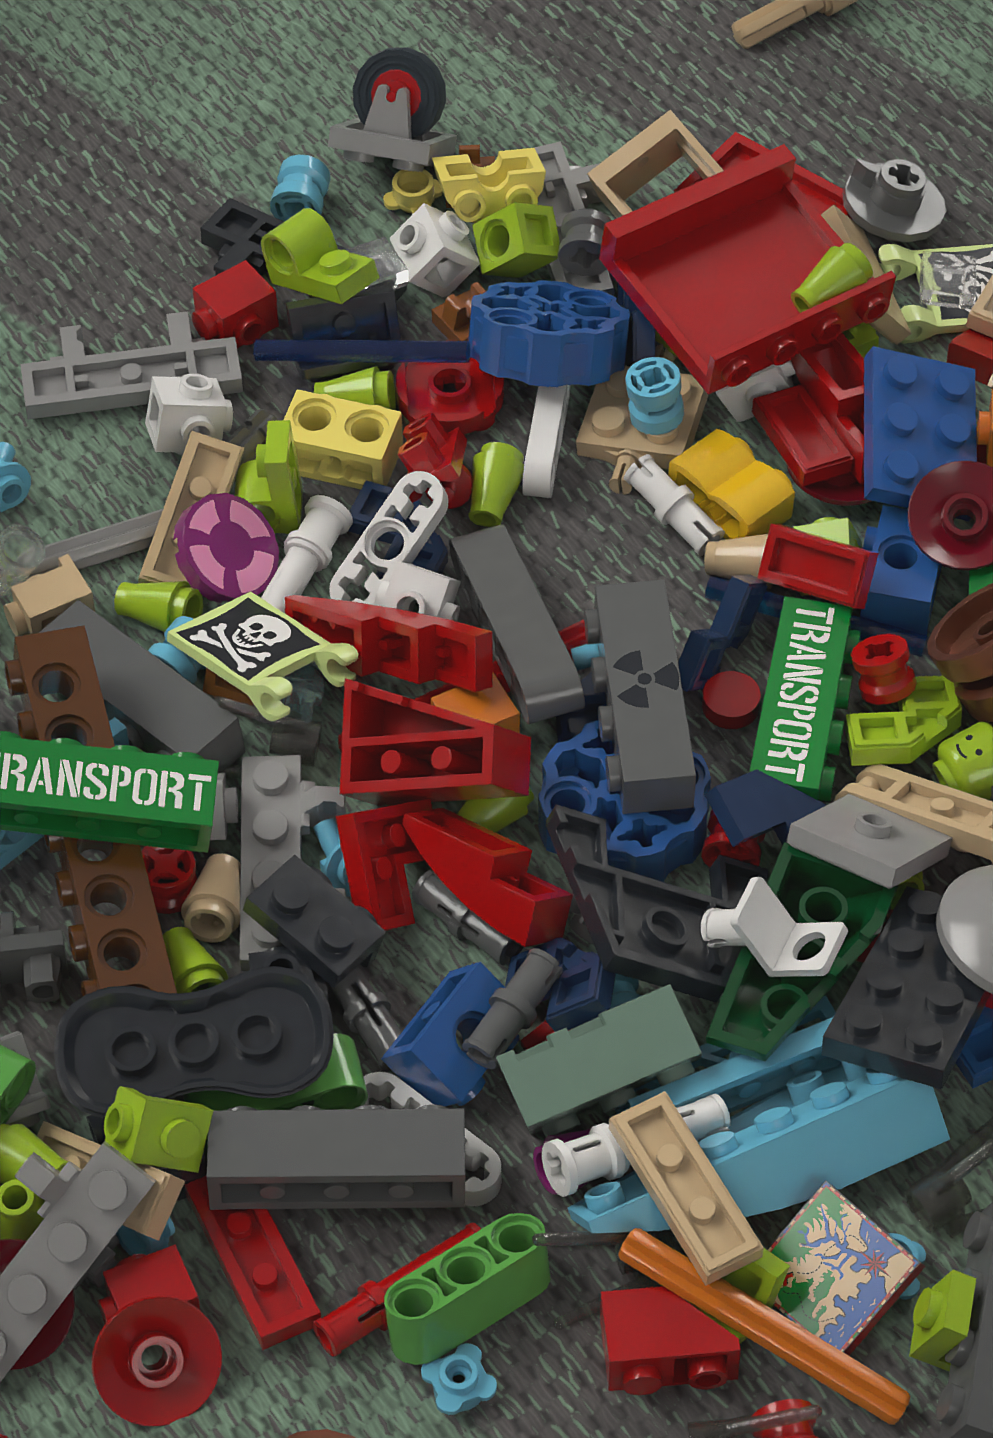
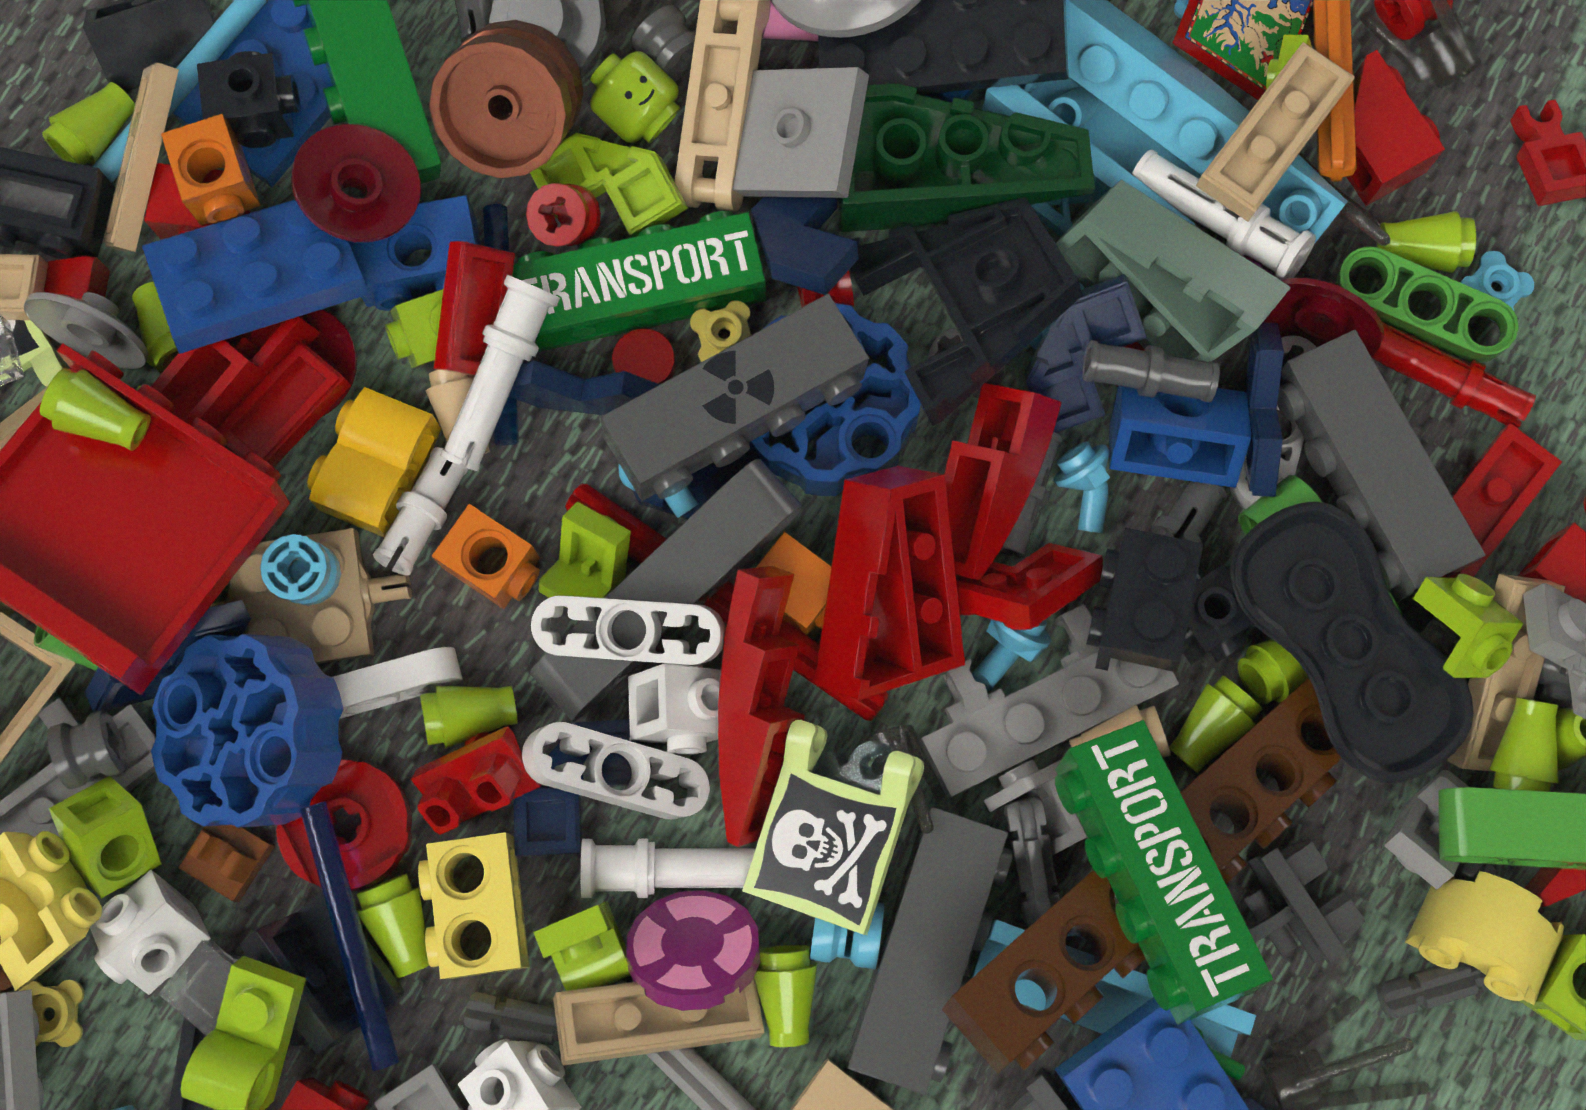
camera: 115 degrees left, 25 degrees up
(411, 1083) = (1262, 389): none -> dark blue tile
(454, 956) = (1085, 470): none -> medium azure plate
(492, 548) = (583, 609): none -> white beam
(497, 1184) = (1325, 312): none -> dark red dish
(529, 1336) = (1433, 241): none -> lime cone
(566, 589) = (590, 556): none -> lime bracket
(611, 533) = (474, 535): none -> orange brick
(738, 750) = (709, 324): none -> light yellow plate
(772, 573) = (509, 343): none -> white pin
(772, 933) = (974, 158): white bracket -> none
(935, 330) = (87, 326): none -> light grey dish

